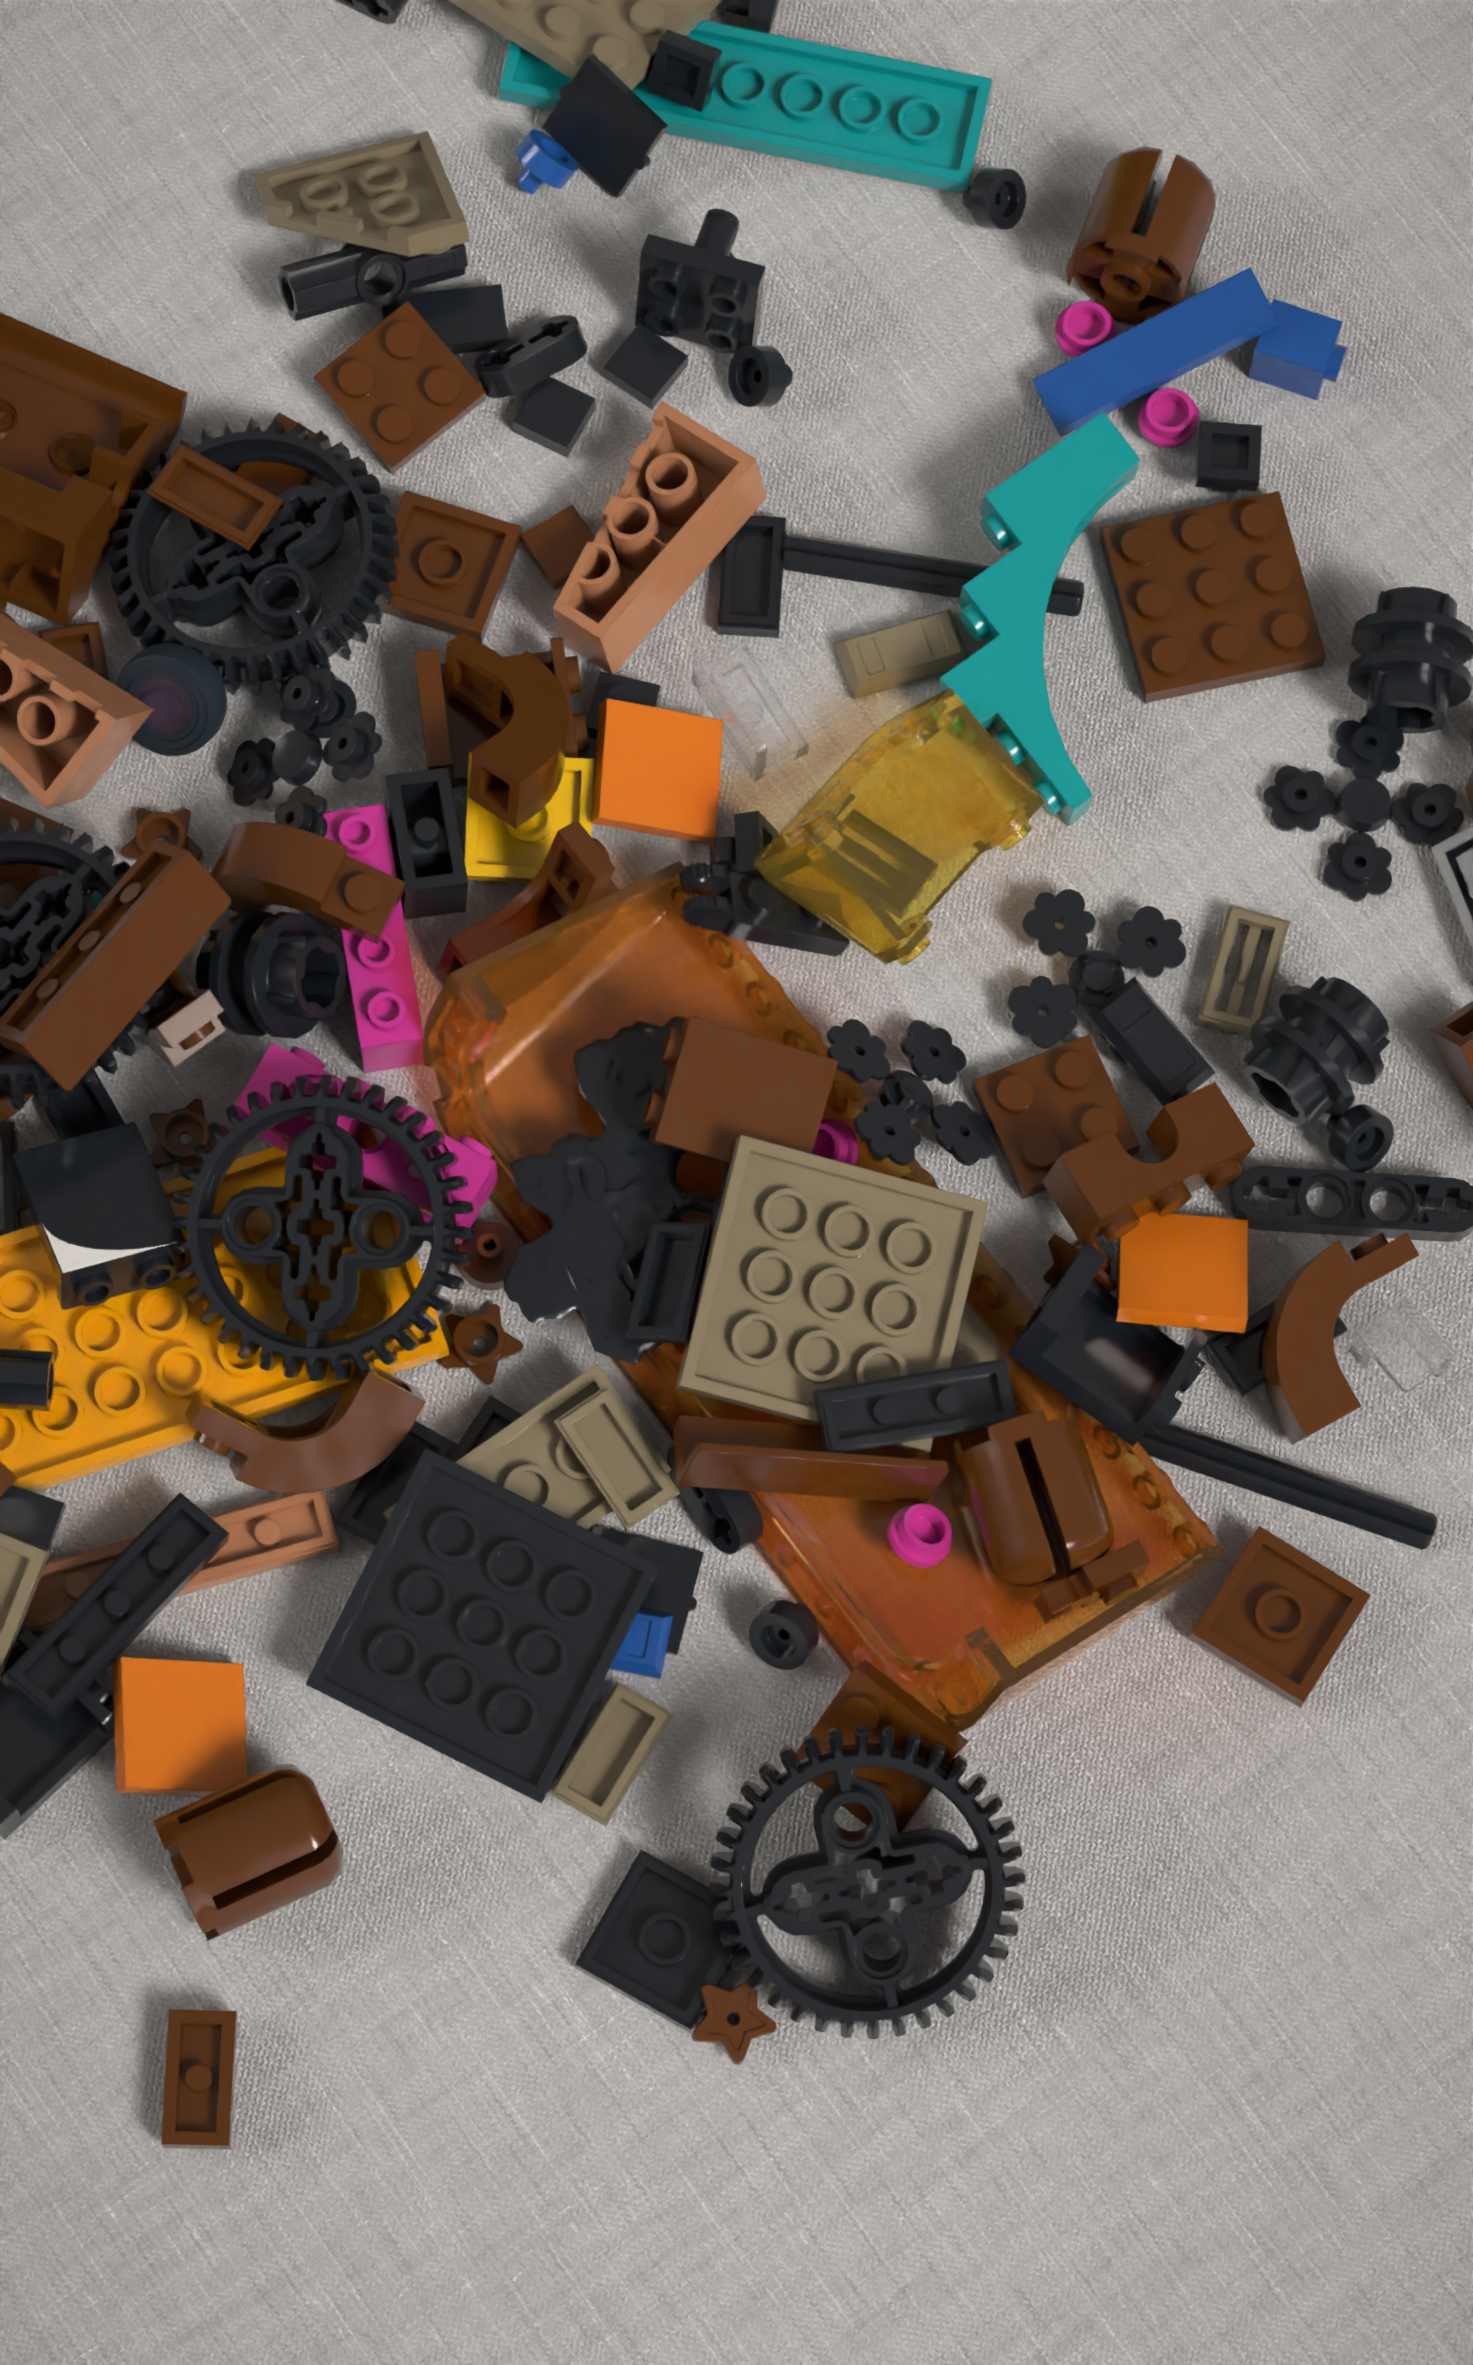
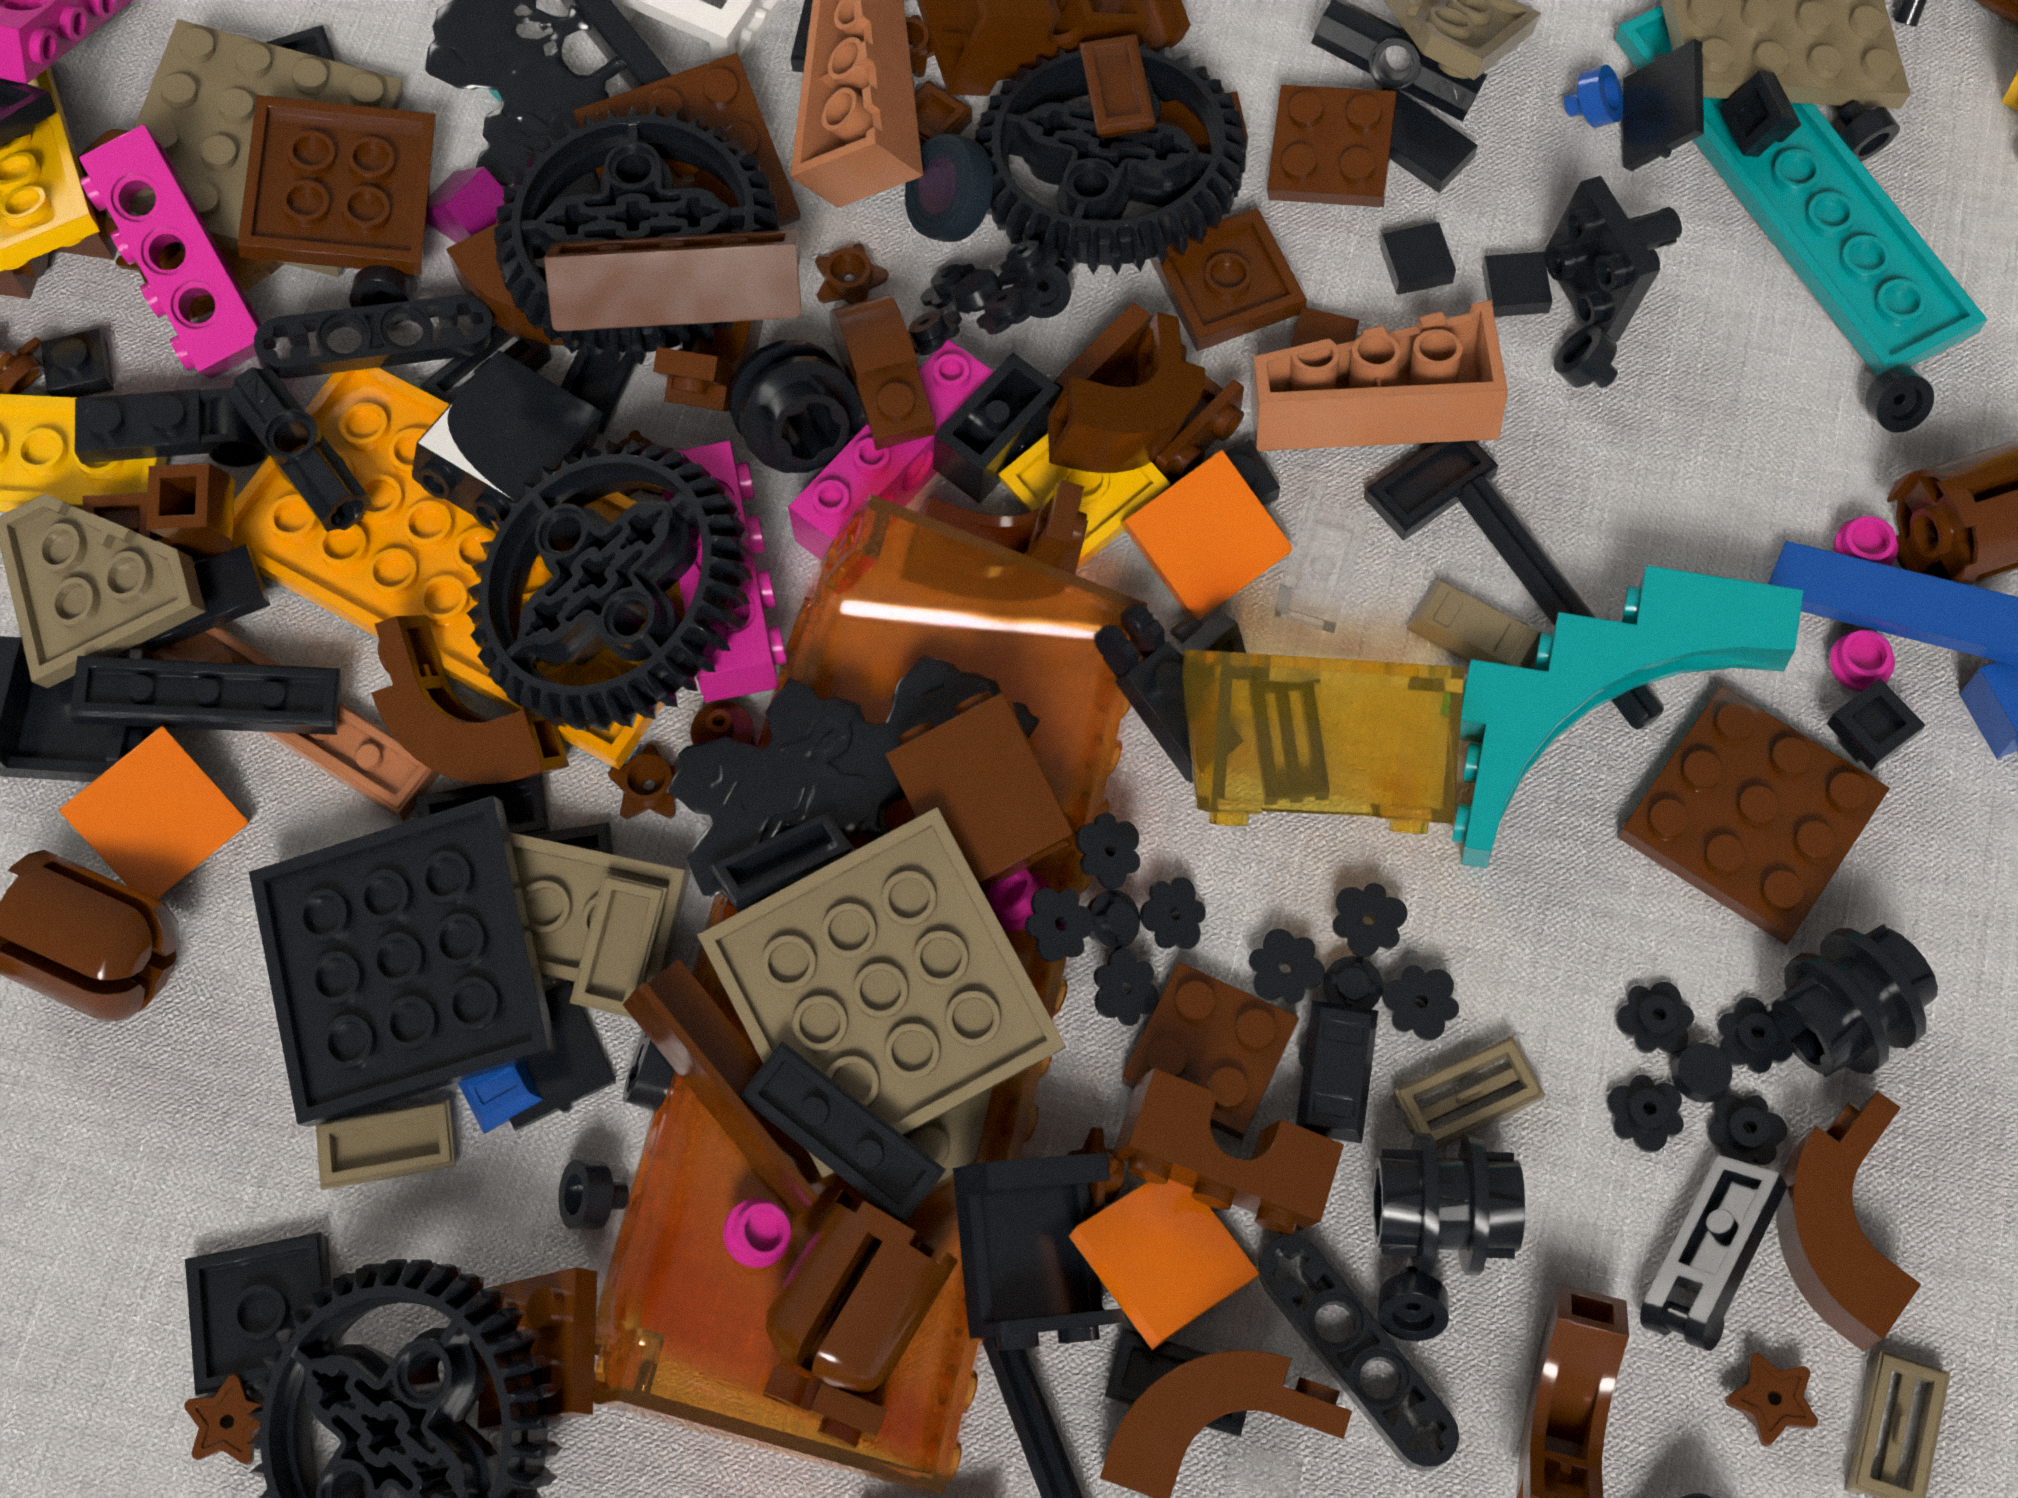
camera: 55 degrees right, 5 degrees down
(530, 356) = (1442, 204): black beam -> none

